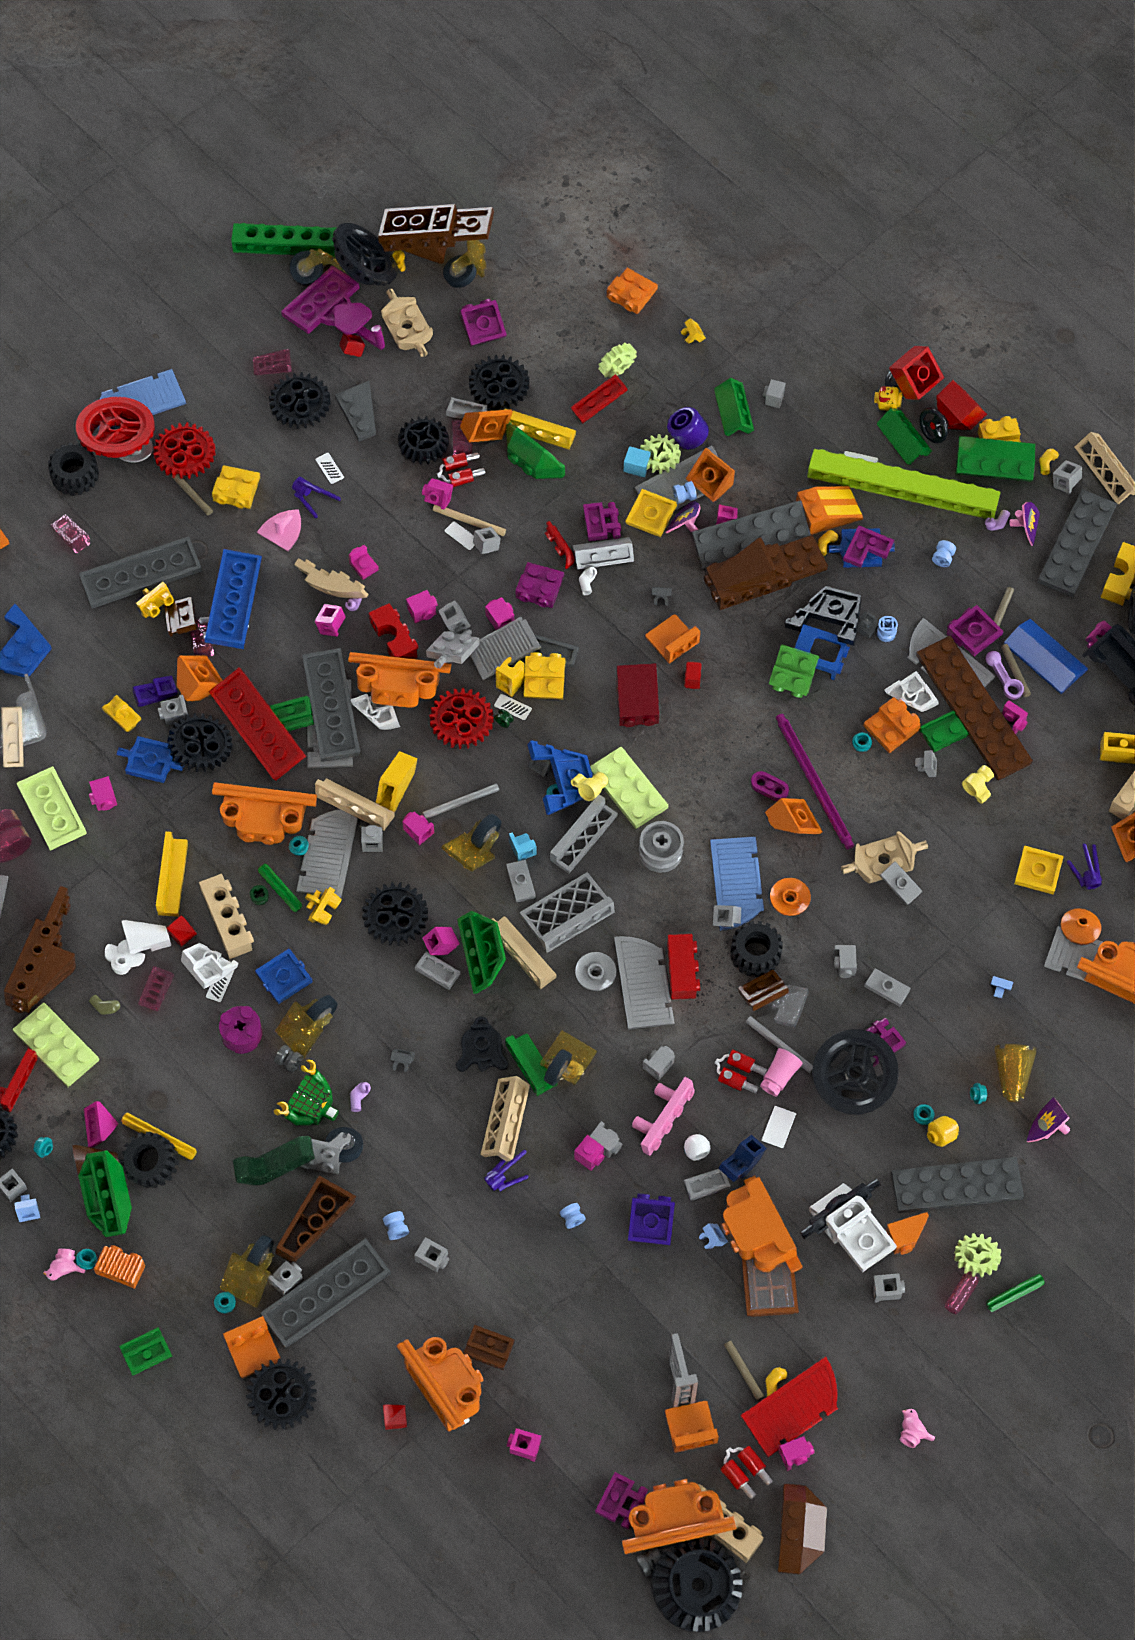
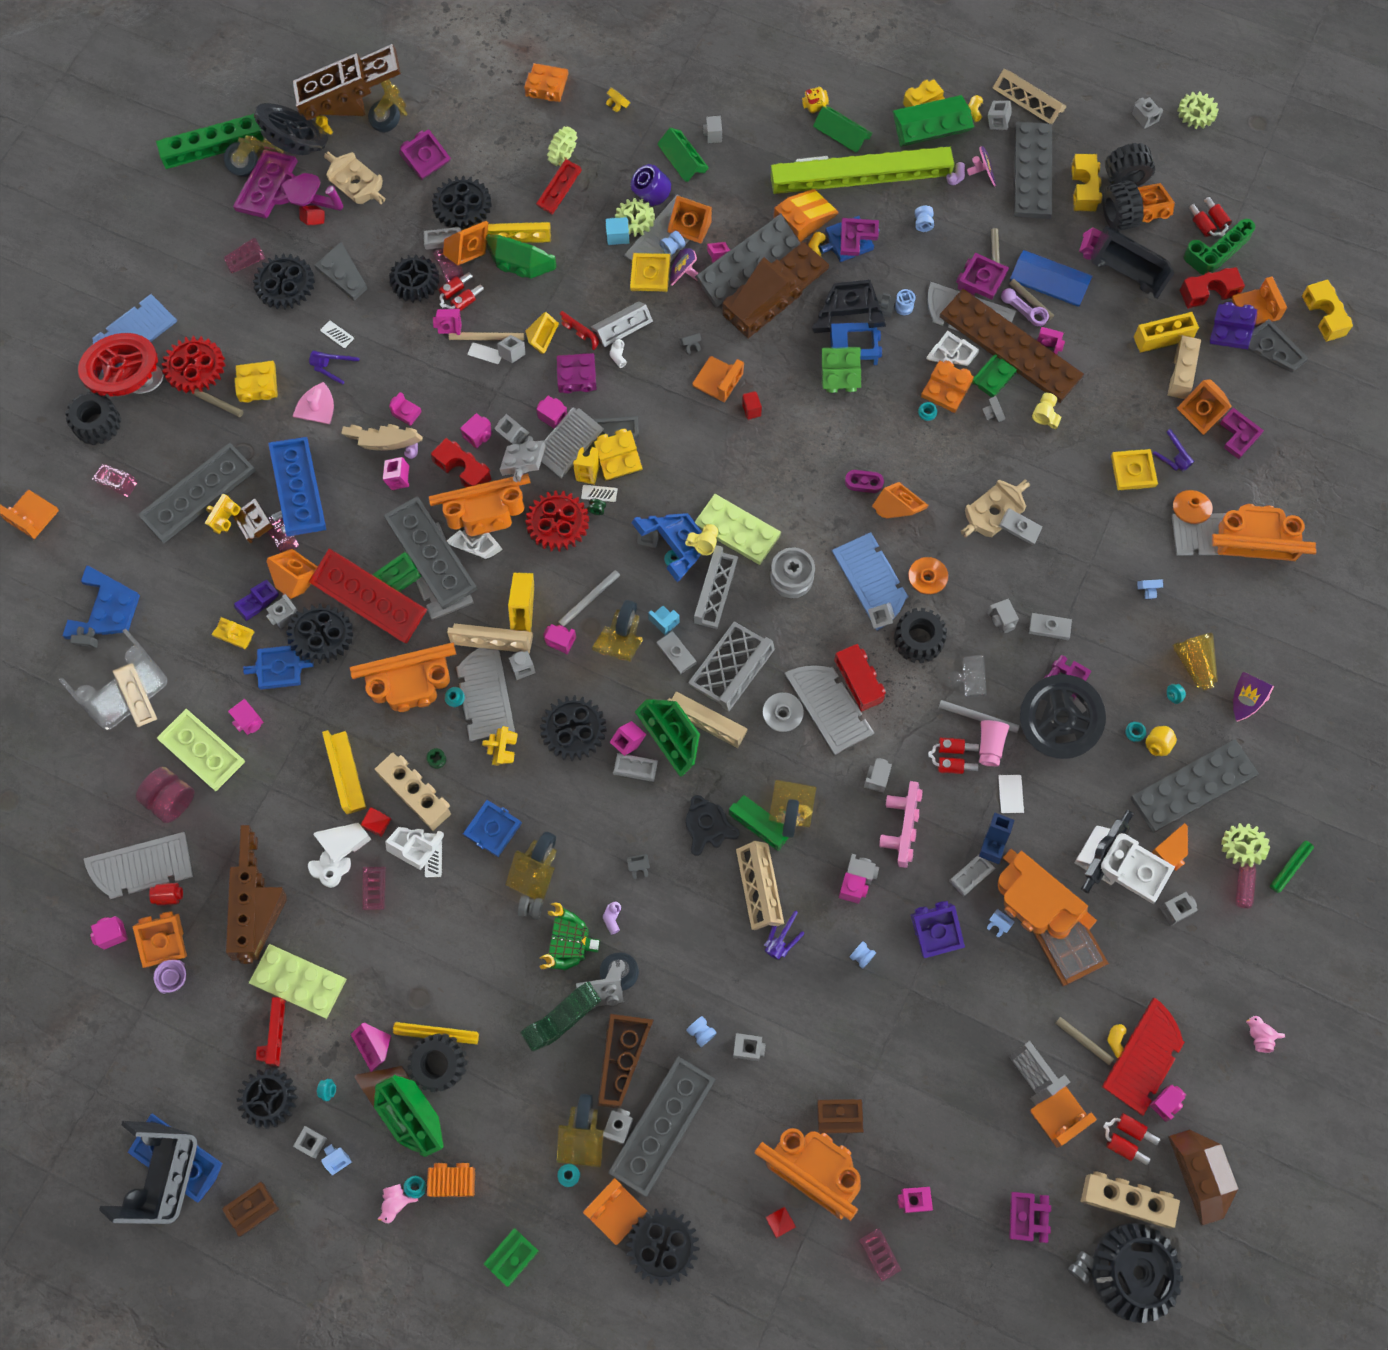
camera: 20 degrees left, 5 degrees up
(104, 1007) = (331, 925): olive arm -> none
(240, 1018) = (466, 906): magenta brick -> none
(280, 888) = (453, 744): green axle -> none
(467, 1459) = (868, 1238): none -> clear pink slope
(523, 534) = (541, 332): none -> yellow slope
(595, 521) = (603, 298): magenta plate -> none
(637, 695) = (710, 440): dark red slope -> none
(676, 1516) = (1094, 1215): orange brick -> none
(696, 1147) = (948, 843): white piece -> none
(763, 990) = (943, 671): reddish brown plate -> none
(815, 781) = (902, 462): magenta piece -> none
(915, 373) = (832, 67): red piece -> none
(954, 411) = (880, 89): red piece -> none

